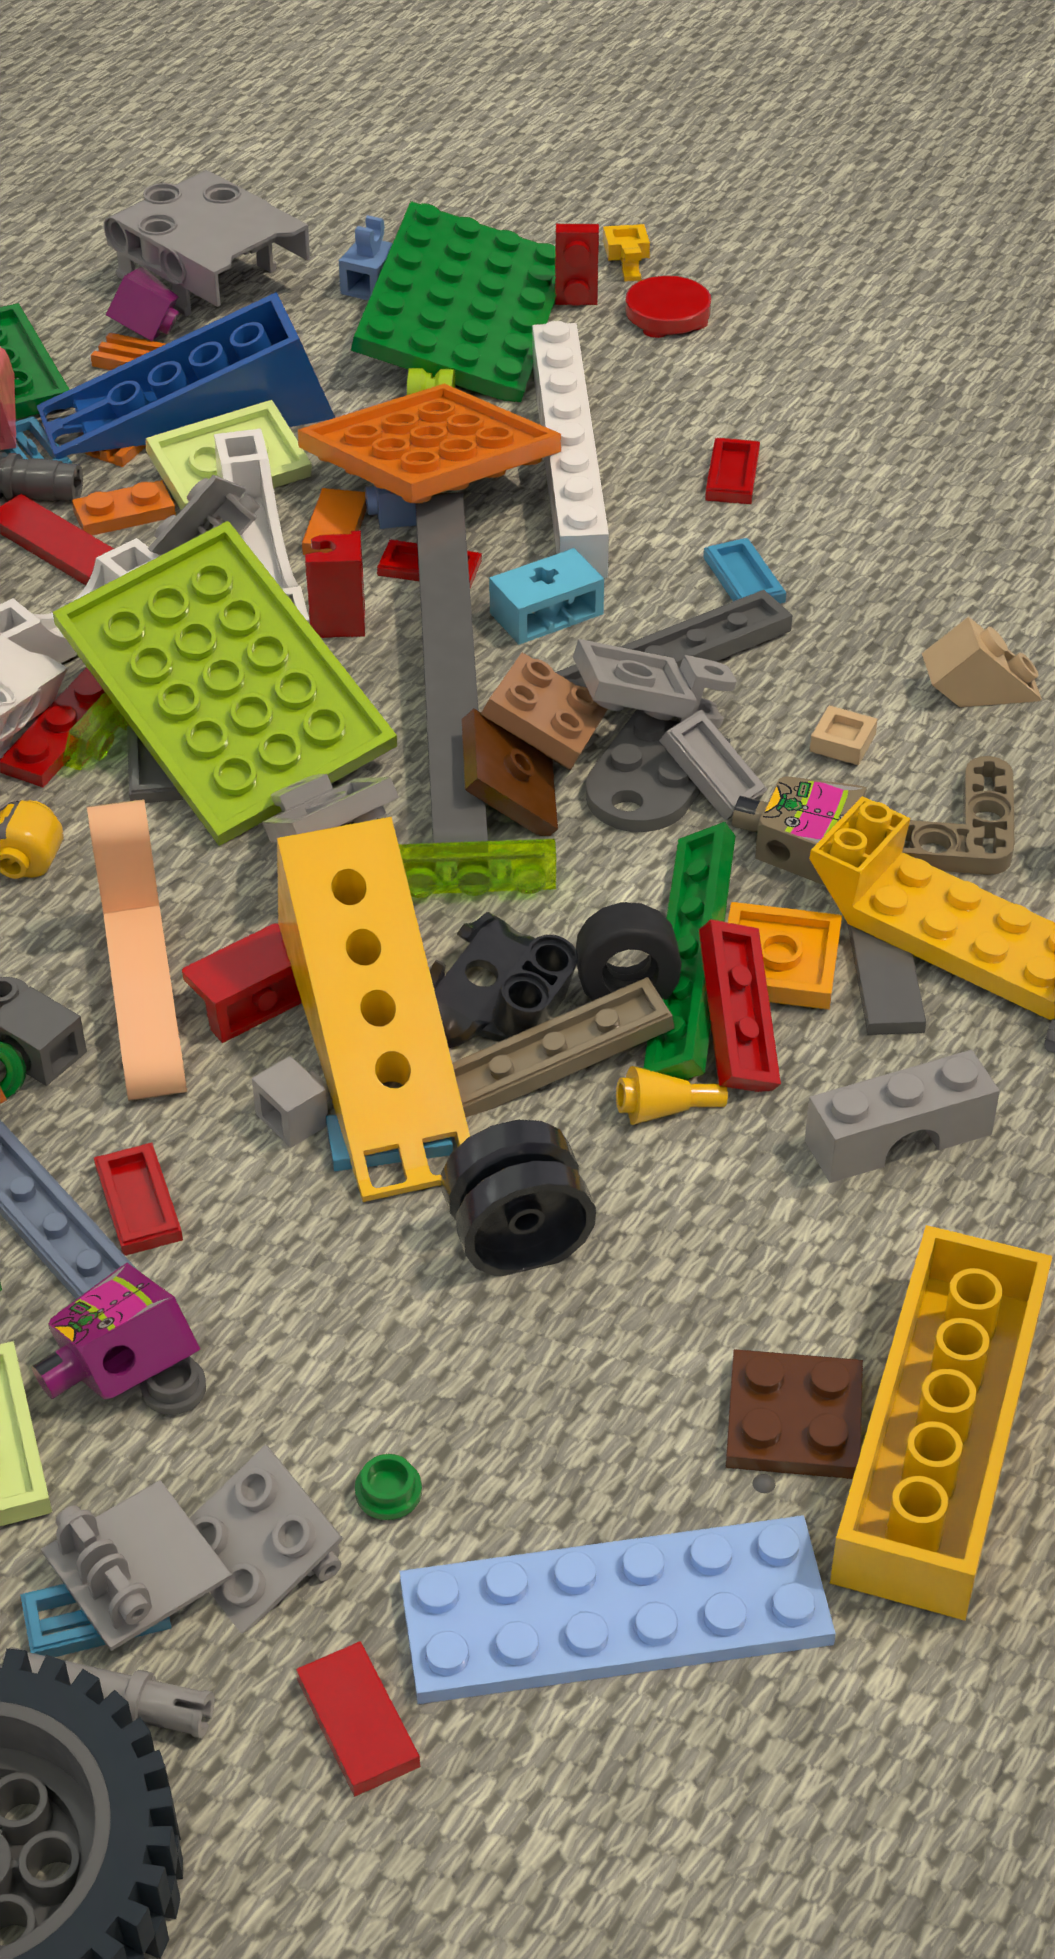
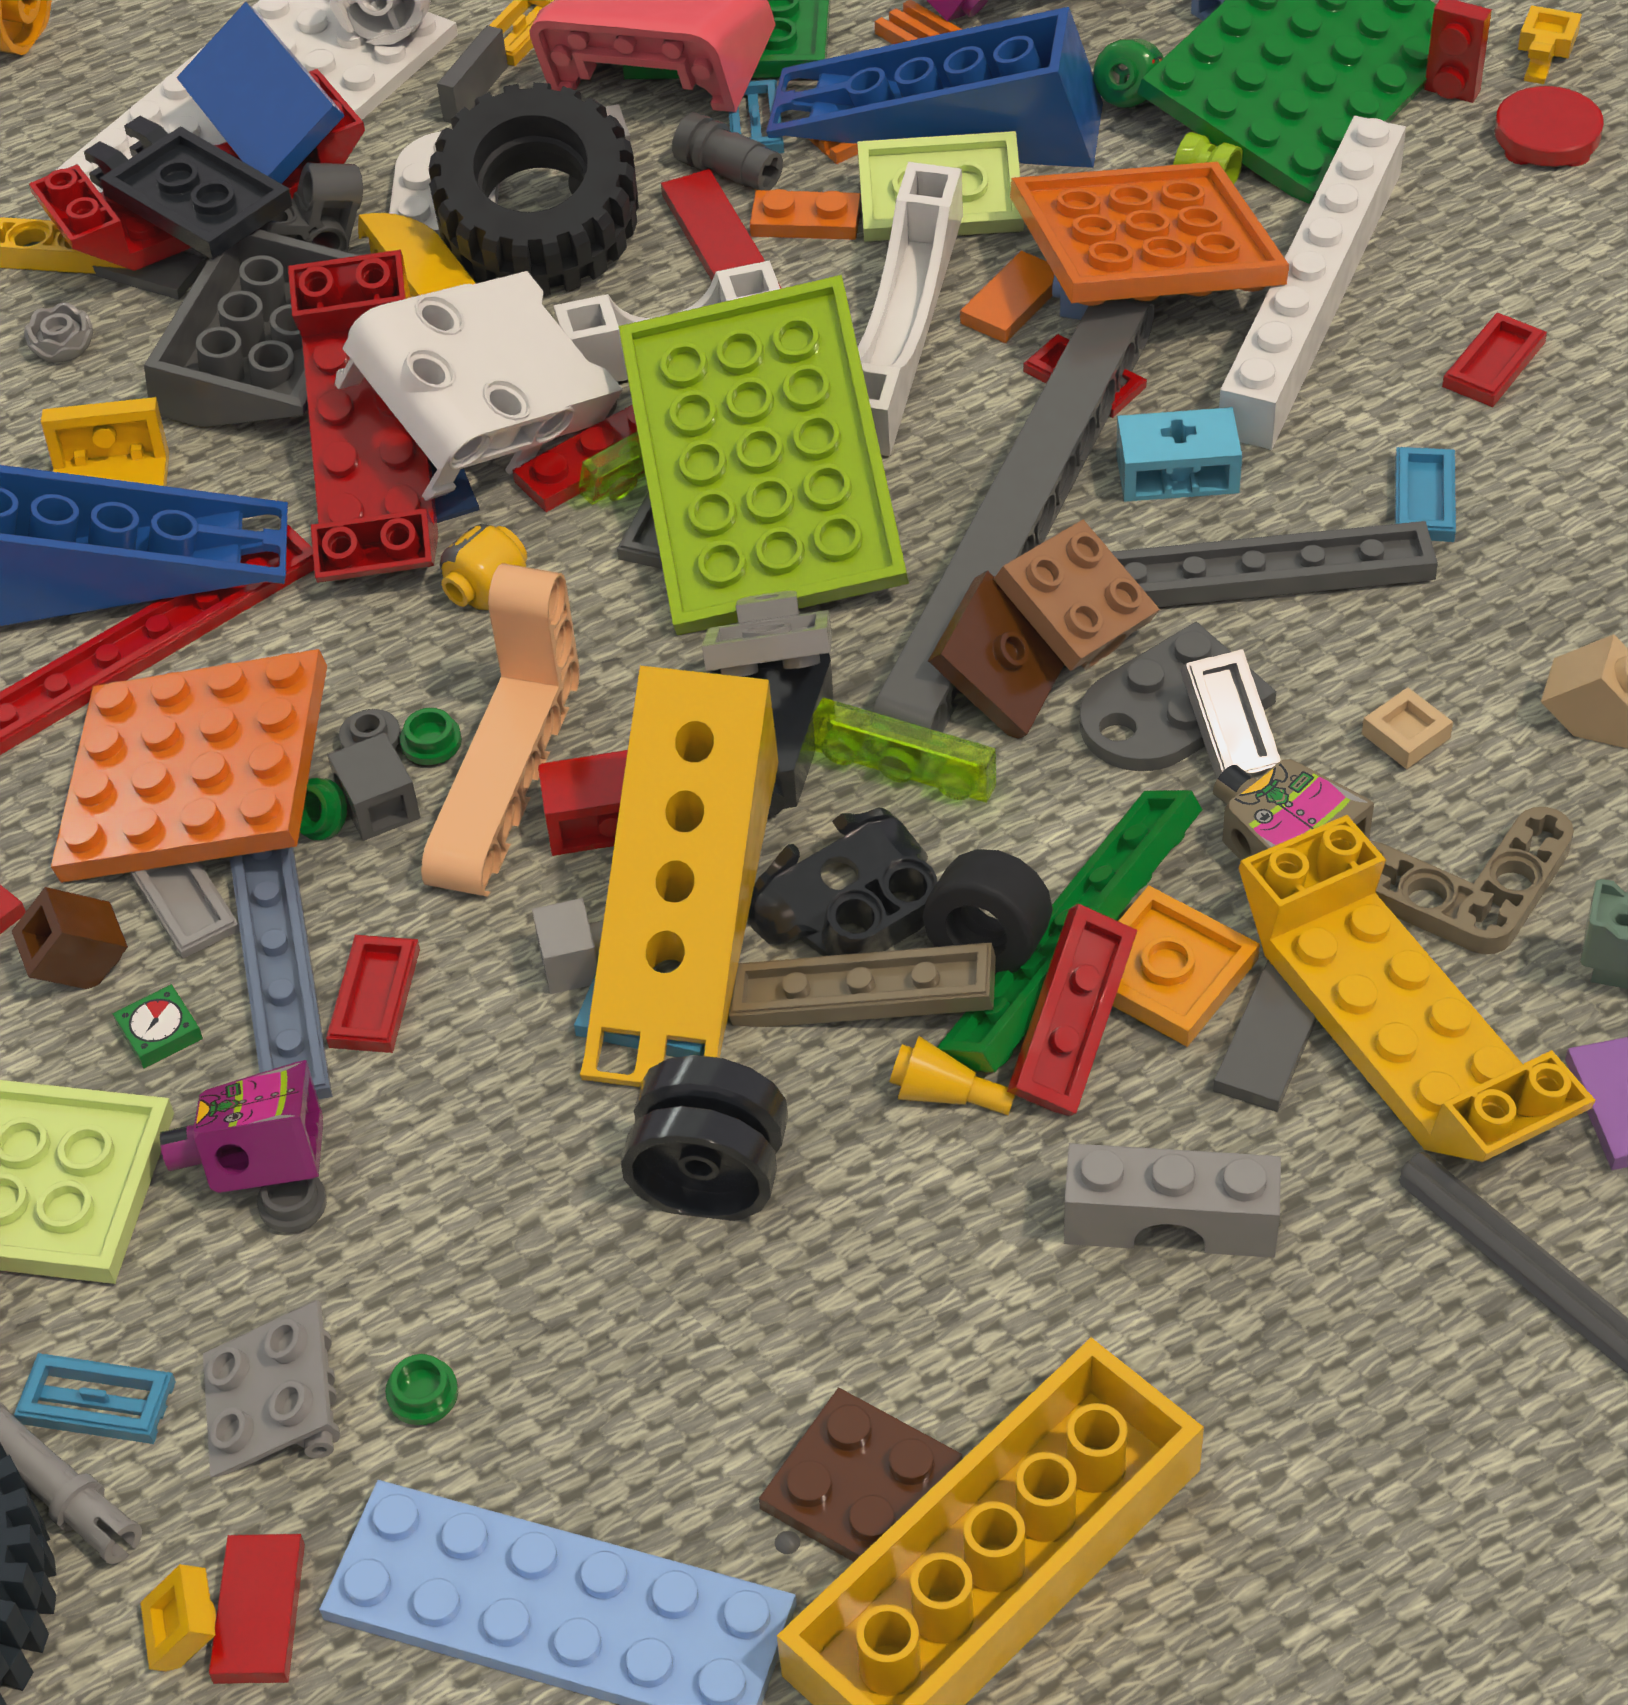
camera: 30 degrees right, 5 degrees up
(61, 981) = (430, 736): none -> green plate
(133, 1563) = (141, 1366): light grey hinge -> none
(207, 504) = (858, 250): light grey hinge -> none
(298, 1752) = (178, 1618): none -> yellow plate
(313, 334) = (1111, 72): none -> green head
(336, 586) = (949, 377): red hinge -> none
(651, 681) = (1214, 599): light grey plate -> none

